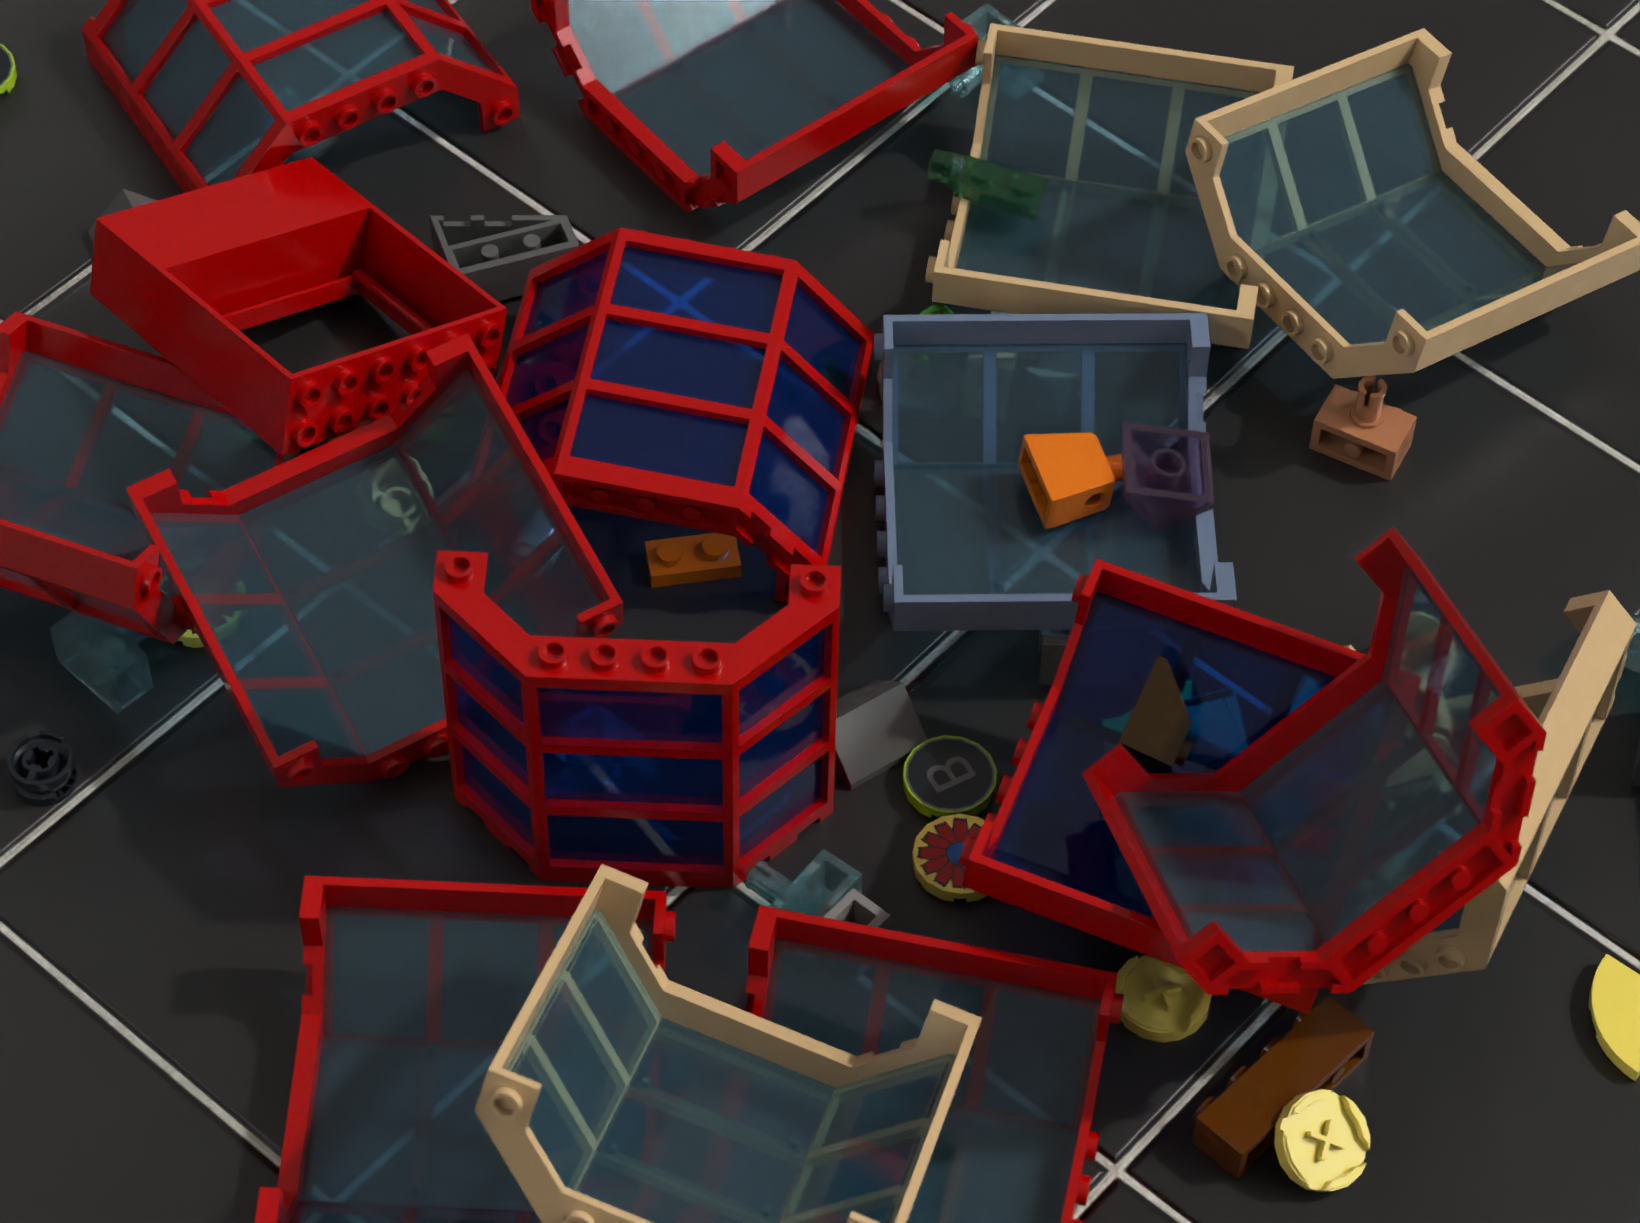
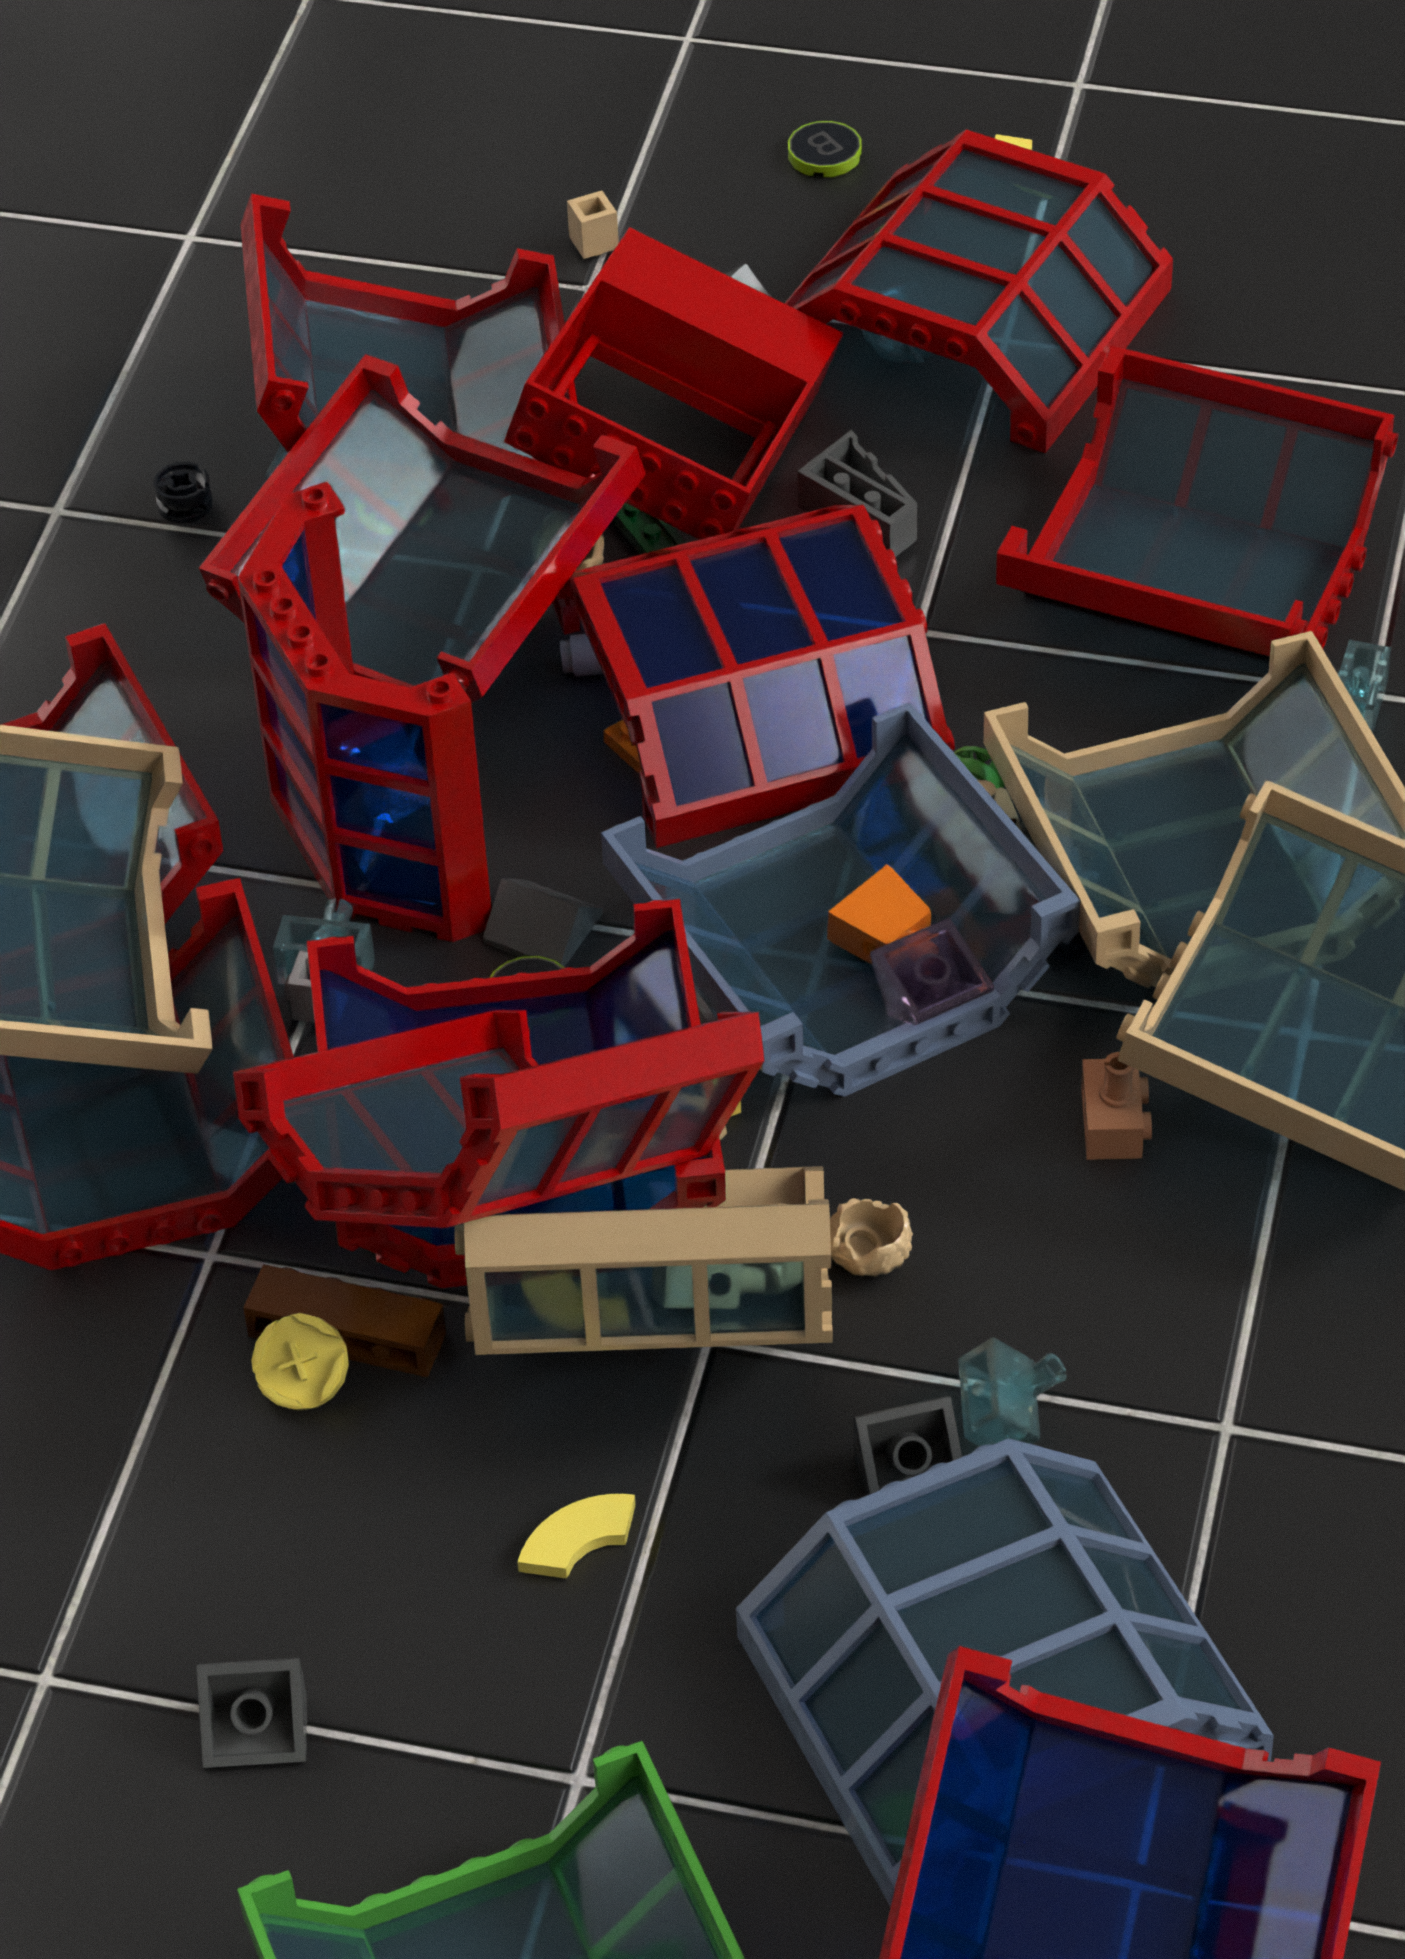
camera: 65 degrees right, 5 degrees down
(989, 183) = (1180, 740): clear green hinge -> none
(1159, 722) = (588, 1026): dark brown slope -> none

